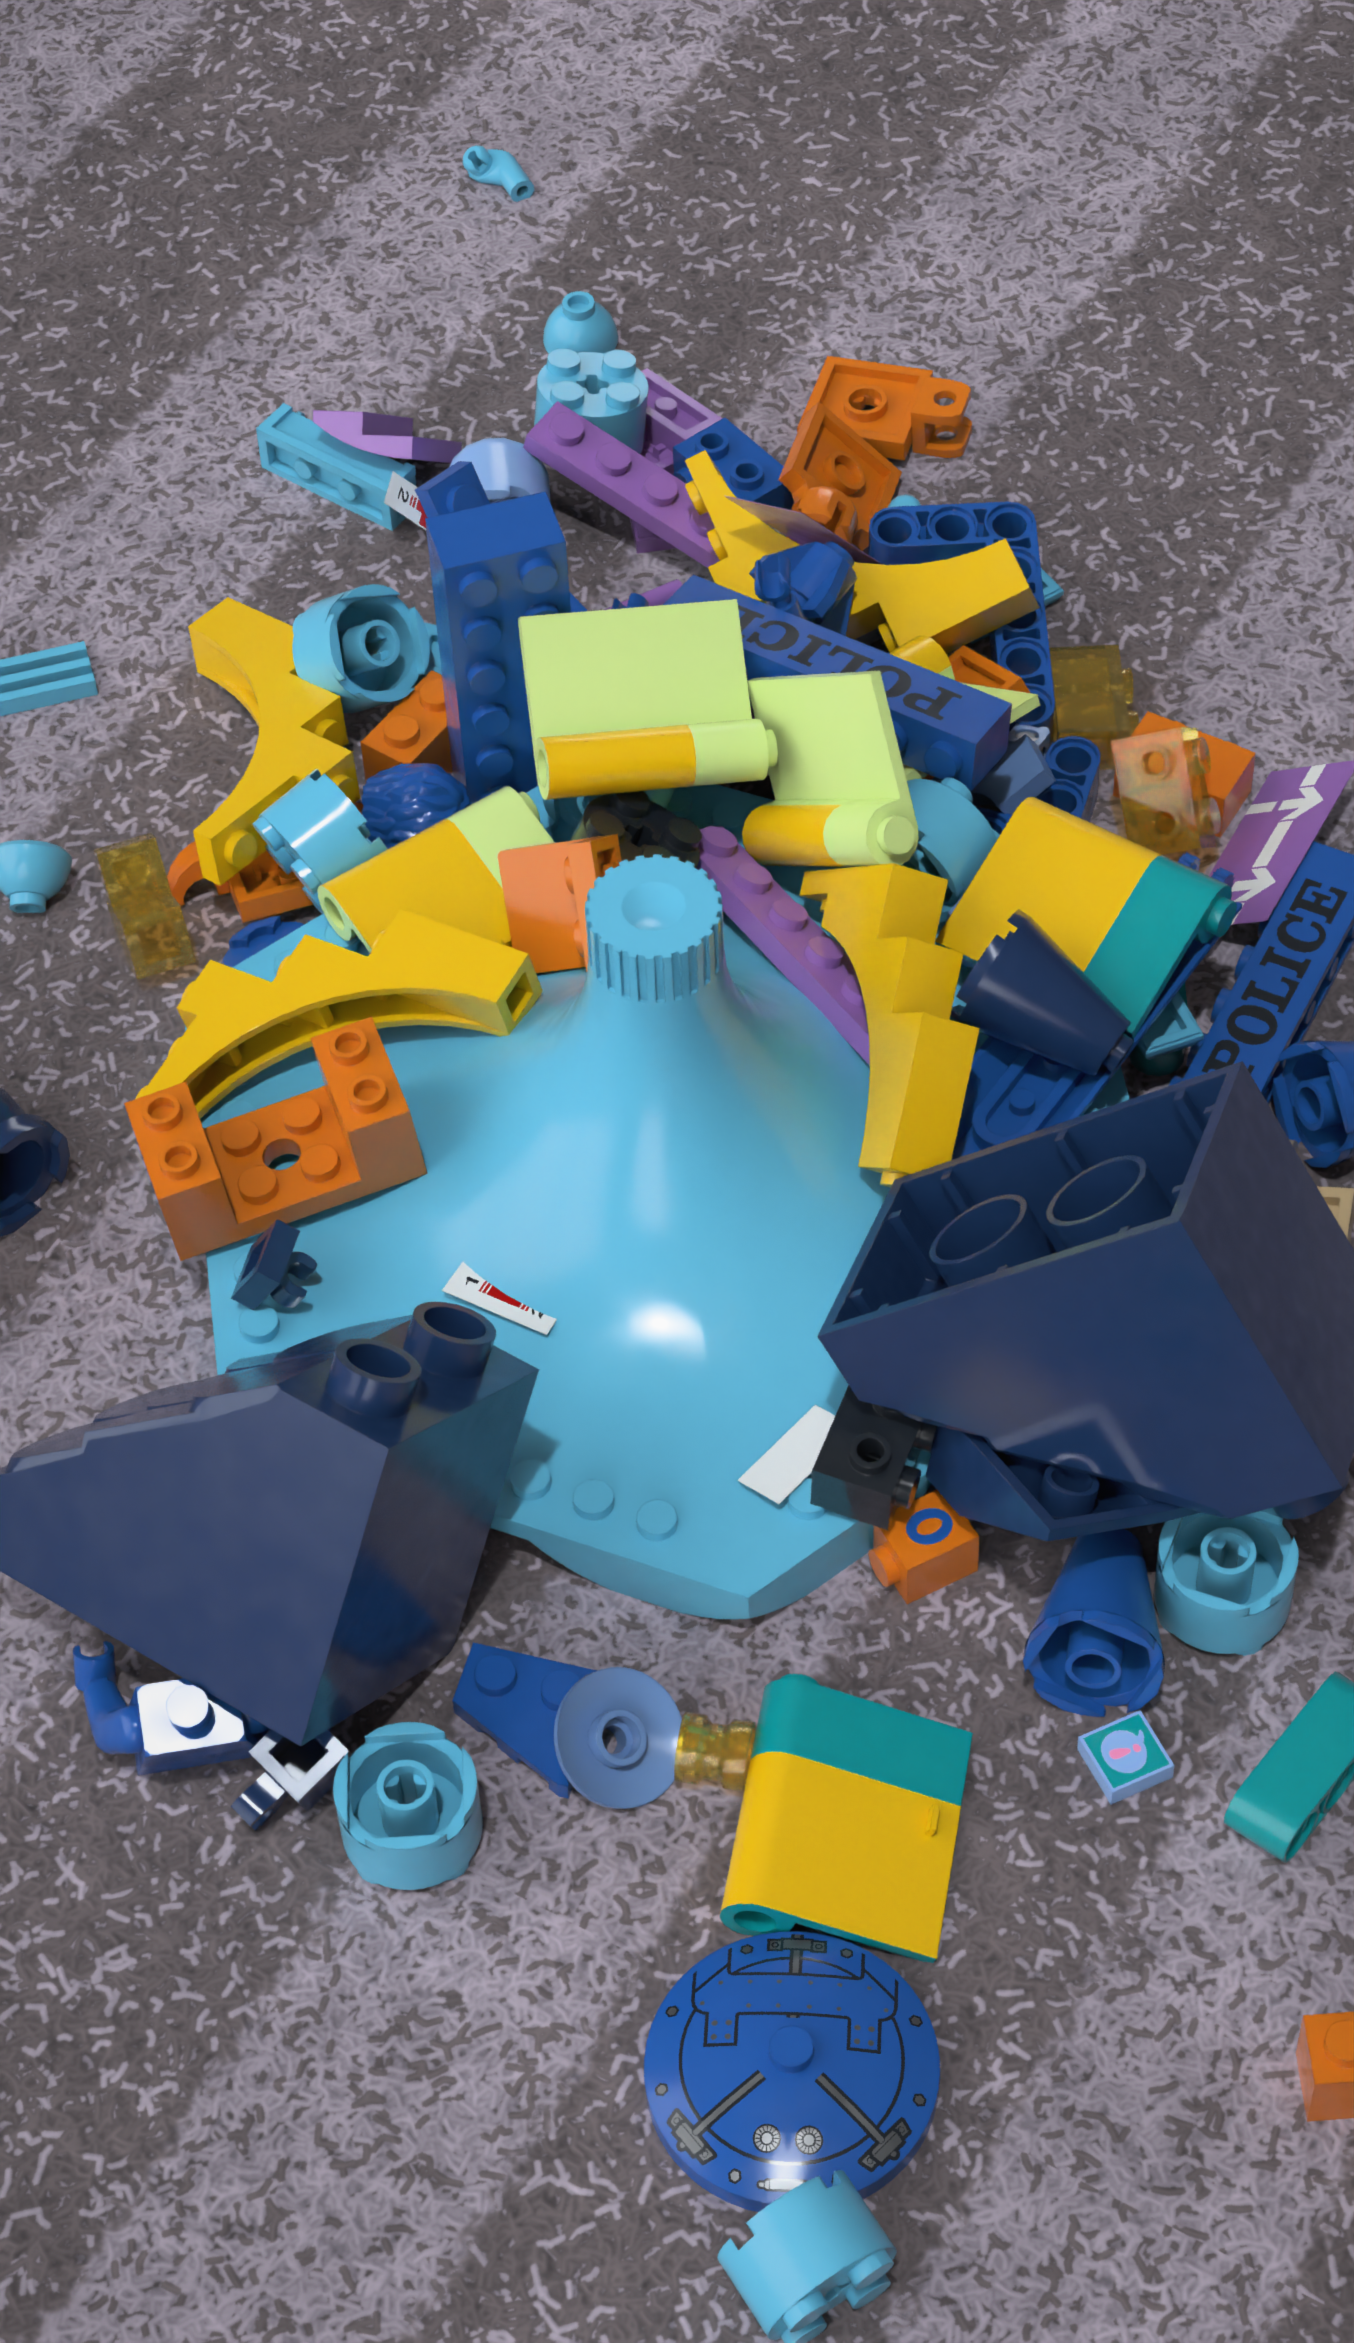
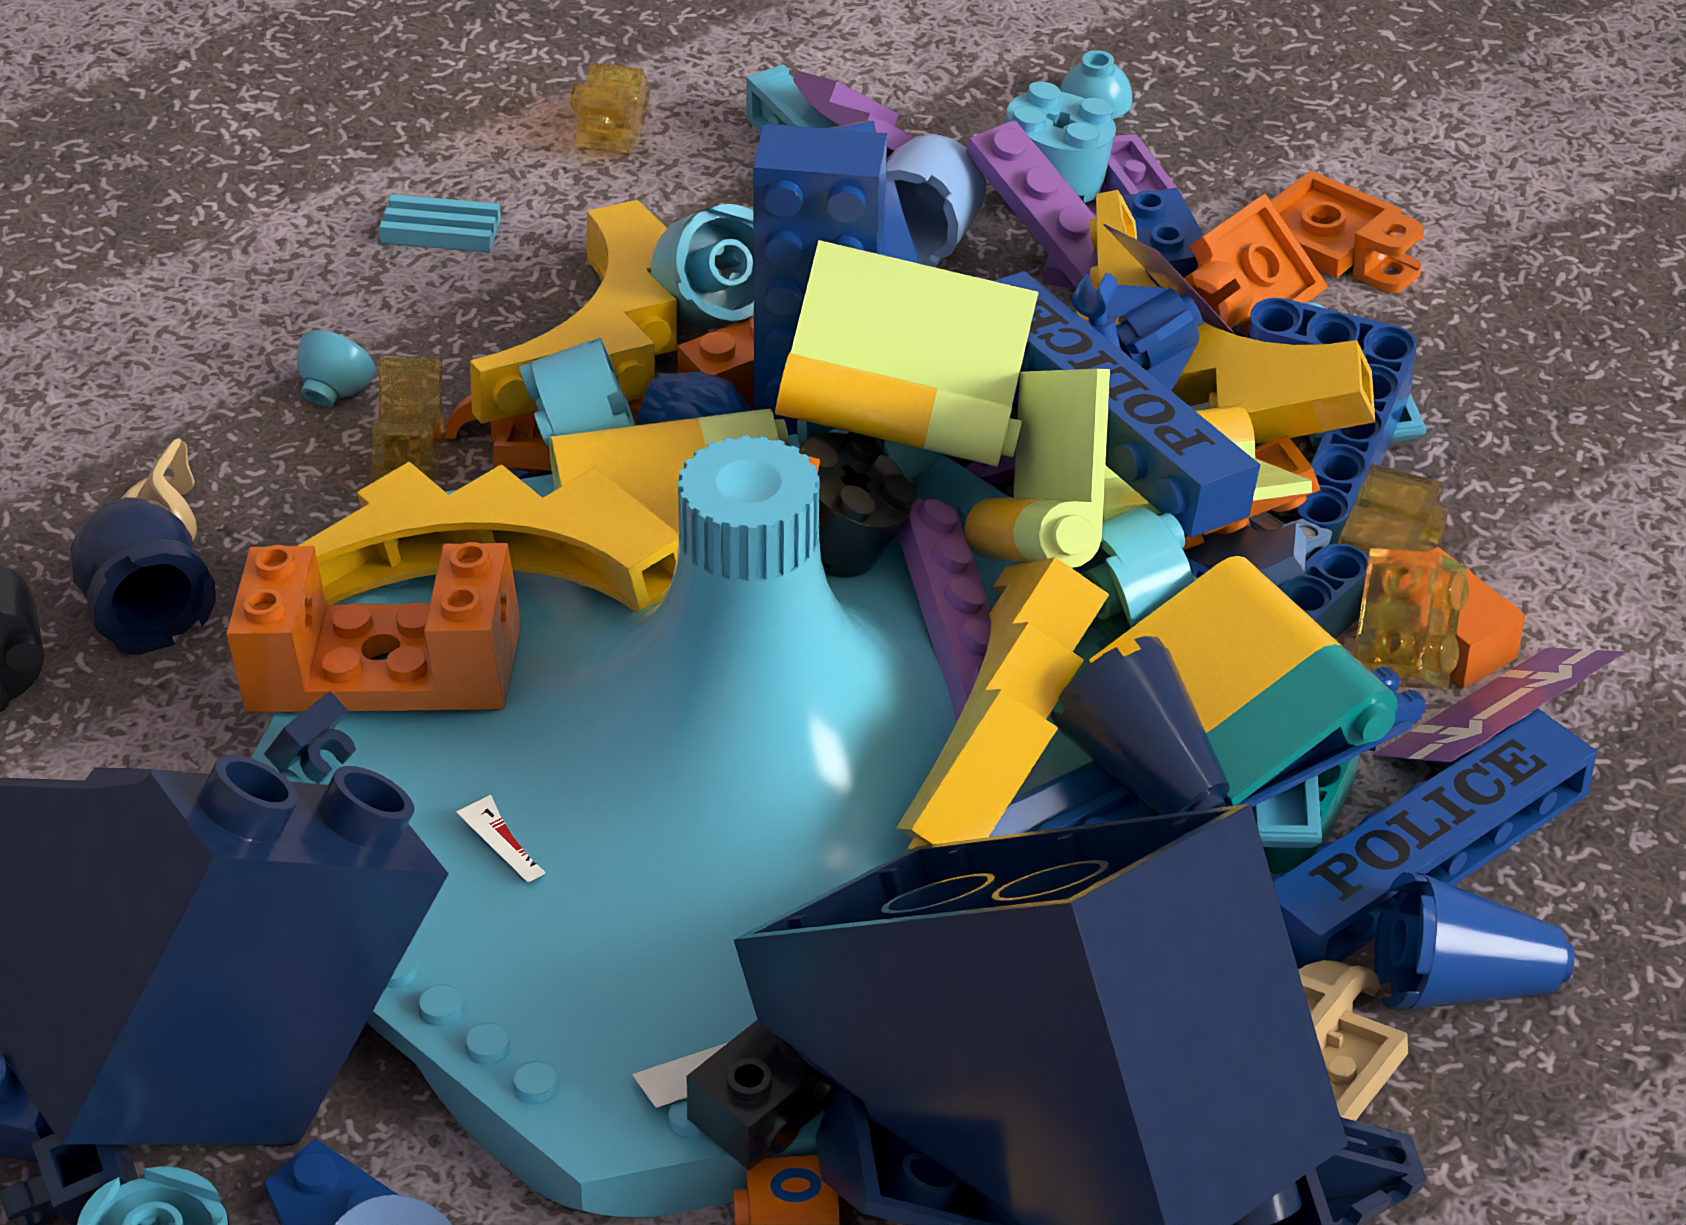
camera: 20 degrees right, 10 degrees down
(137, 503) = (610, 107): none -> clear yellow brick

